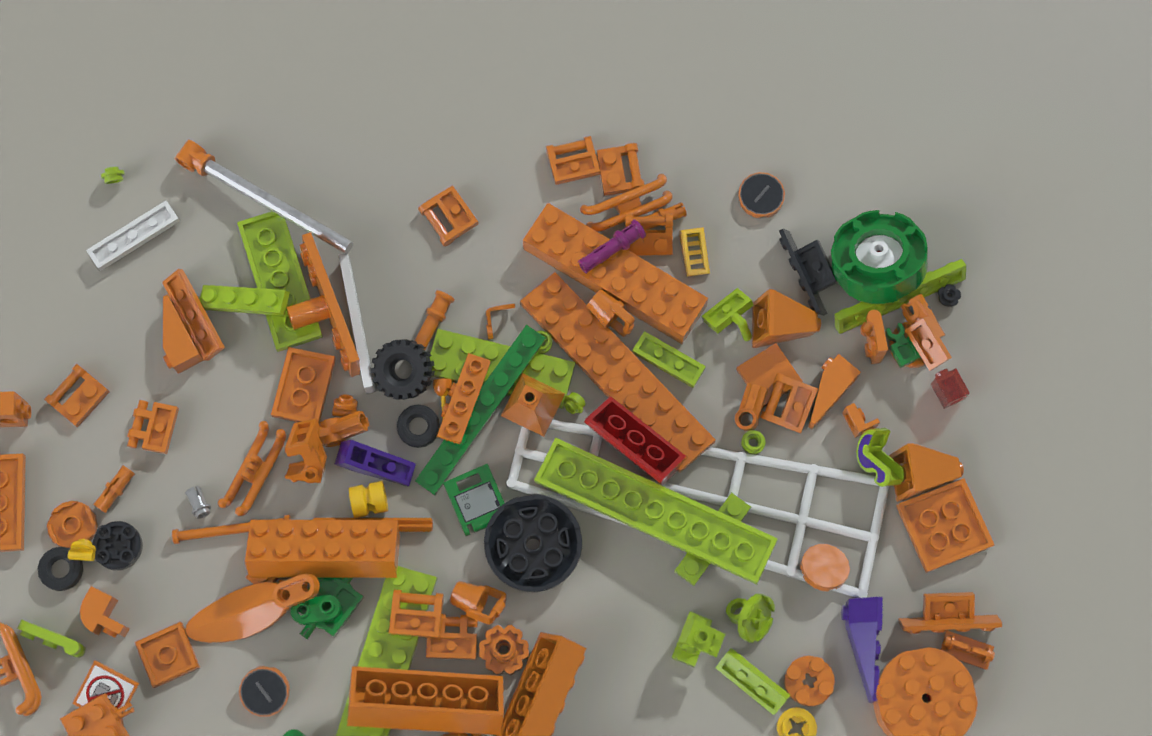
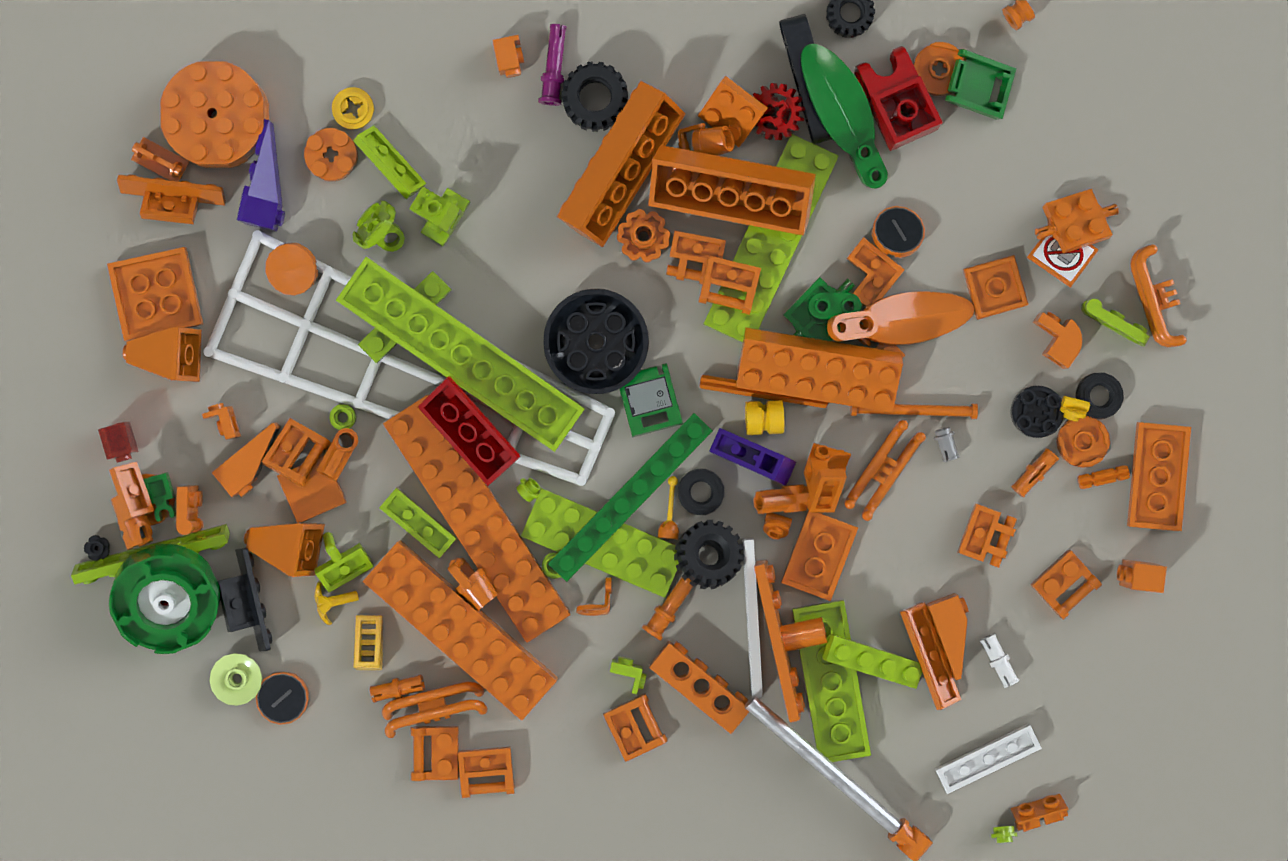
camera: 170 degrees left, 15 degrees up
(50, 495) = (1103, 477): none -> orange axle
(90, 196) = (1050, 808): none -> orange hinge
(131, 319) = (999, 660): none -> white pin
(277, 648) = (879, 270): none -> orange plate
(369, 235) = (726, 717): none -> orange brick
(463, 263) = (625, 667): none -> lime bracket
(463, 399) = (647, 508): orange bracket -> none
(474, 598) = (669, 292): orange piece -> none
(536, 414) = (570, 506): orange slope -> none
(621, 240) = (447, 660): magenta pin -> none
(656, 241) = (415, 661): orange plate -> none
(737, 276) = (325, 603): none -> yellow plant
(806, 193) = (226, 688): none -> yellowish green dish
(873, 459) = (214, 372): lime animal -> none

